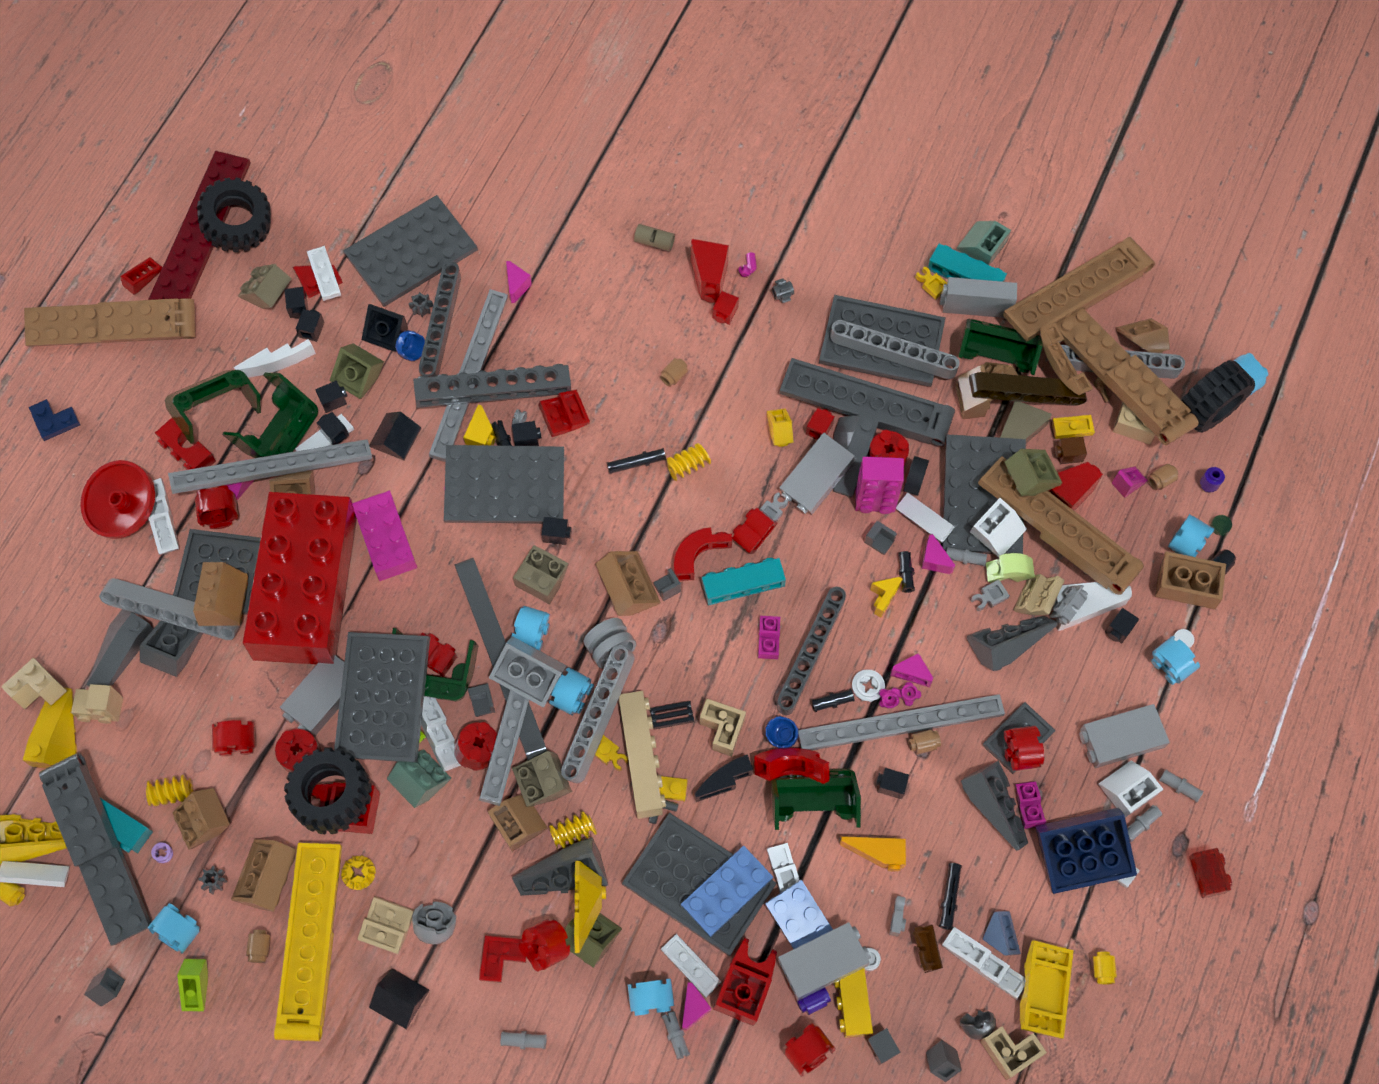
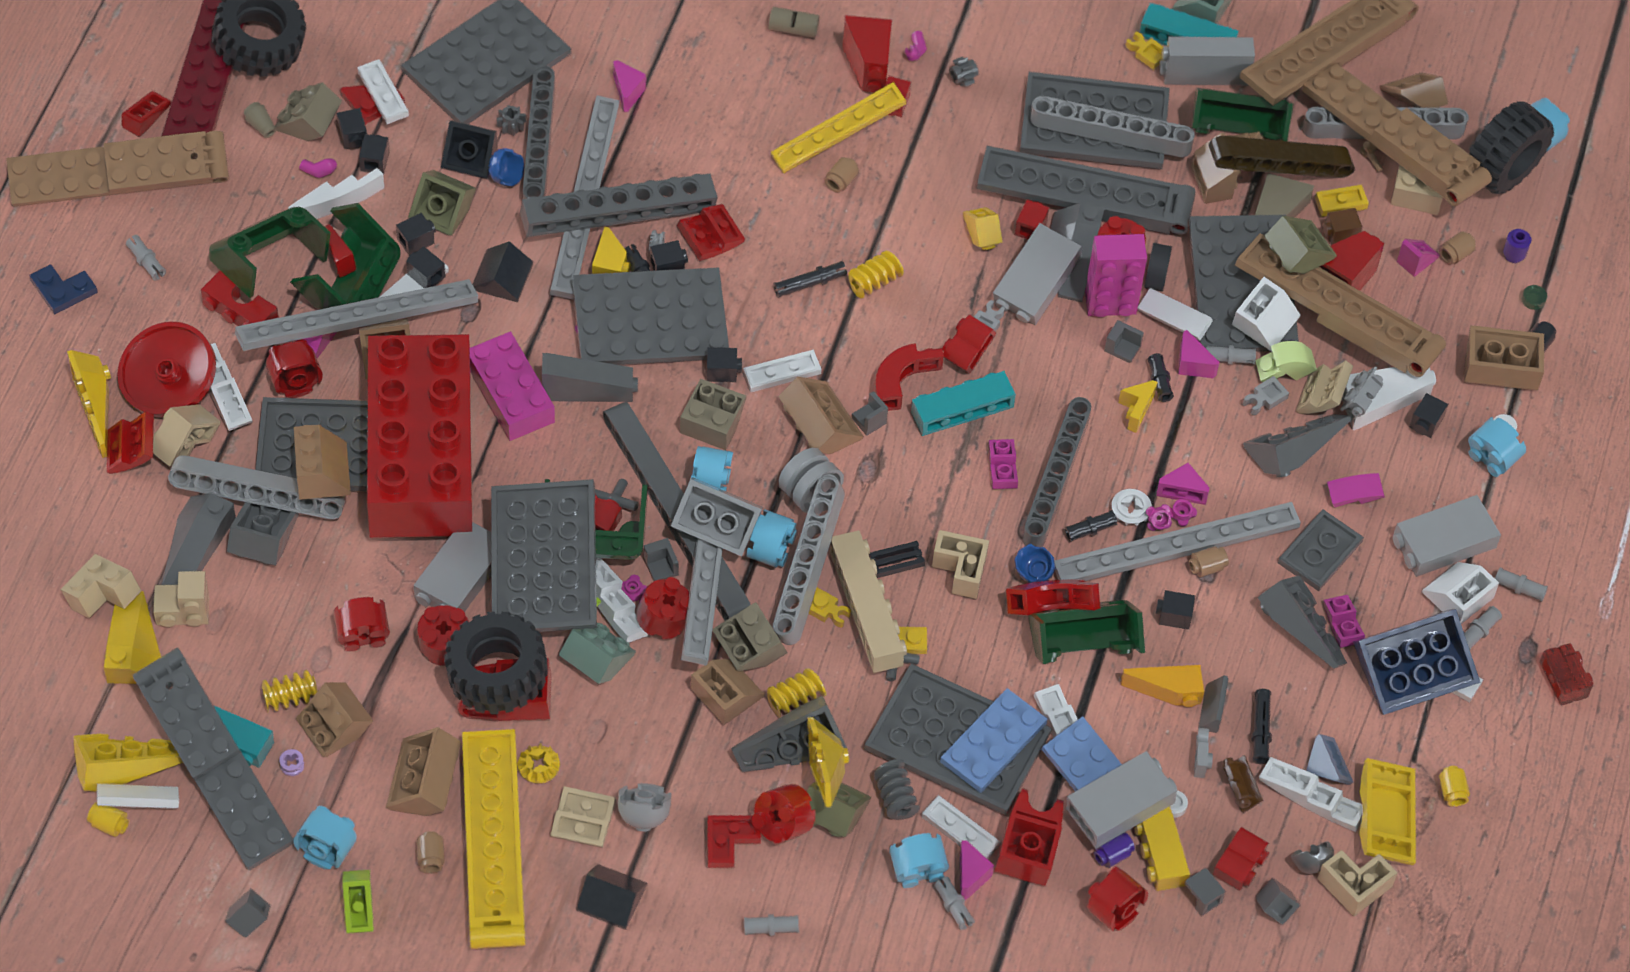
camera: 10 degrees left, 10 degrees down
(60, 510) = (93, 389): none -> yellow wedge
(80, 560) = (130, 443): none -> red slope
(120, 399) = (145, 257): none -> light grey pin
(120, 554) = (182, 430): none -> tan brick
(208, 883) = (361, 784): dark grey gear -> none
(226, 287) = (259, 118): none -> dark tan cone
(266, 334) = (320, 168): none -> dark pink arm
(268, 411) = (341, 254): none -> red slope
(444, 536) = (586, 380): none -> dark grey slope
(454, 639) = (616, 496): none -> dark grey piece
(454, 728) = (636, 593): none -> dark pink plate
(603, 539) = (781, 370): none -> white tile
(640, 927) = (896, 790): none -> dark grey piece
(676, 332) = (838, 127): none -> yellow tile
(724, 778) = (972, 621): black slope -> none
(912, 872) = (1213, 704): none -> dark grey slope
(918, 1018) = (1241, 859): none -> red brick
(1024, 748) = (1328, 552): red brick -> none
(1054, 687) = (1356, 488): none -> dark pink slope
(1060, 362) = (1314, 122): medium nougat slope -> none
(1190, 537) = (1499, 307): medium azure brick -> none

